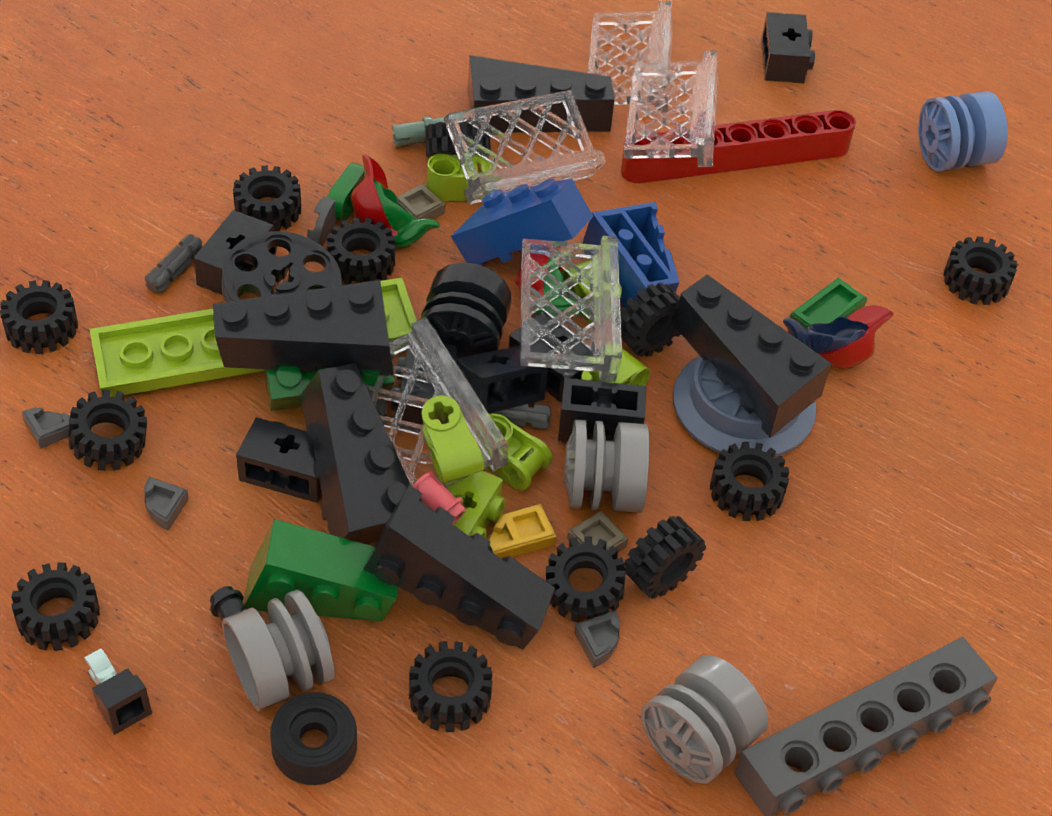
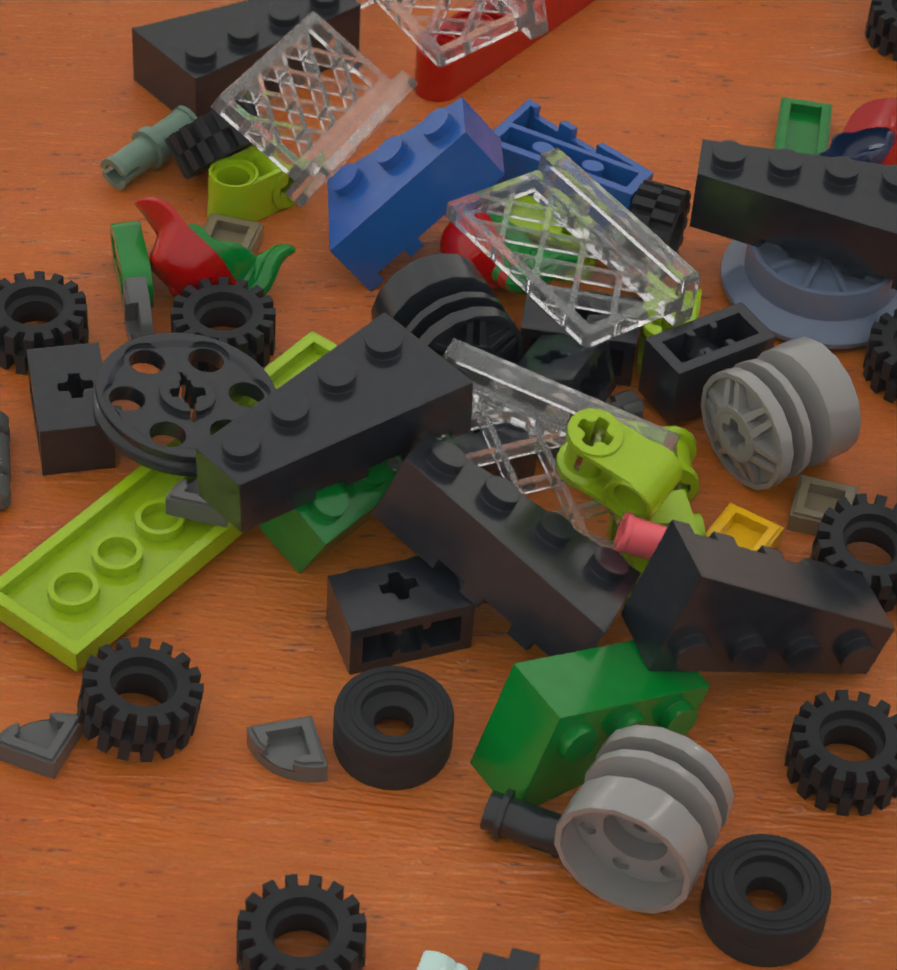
camera: 35 degrees left, 5 degrees down
(220, 499) = (393, 760): none -> black tyre

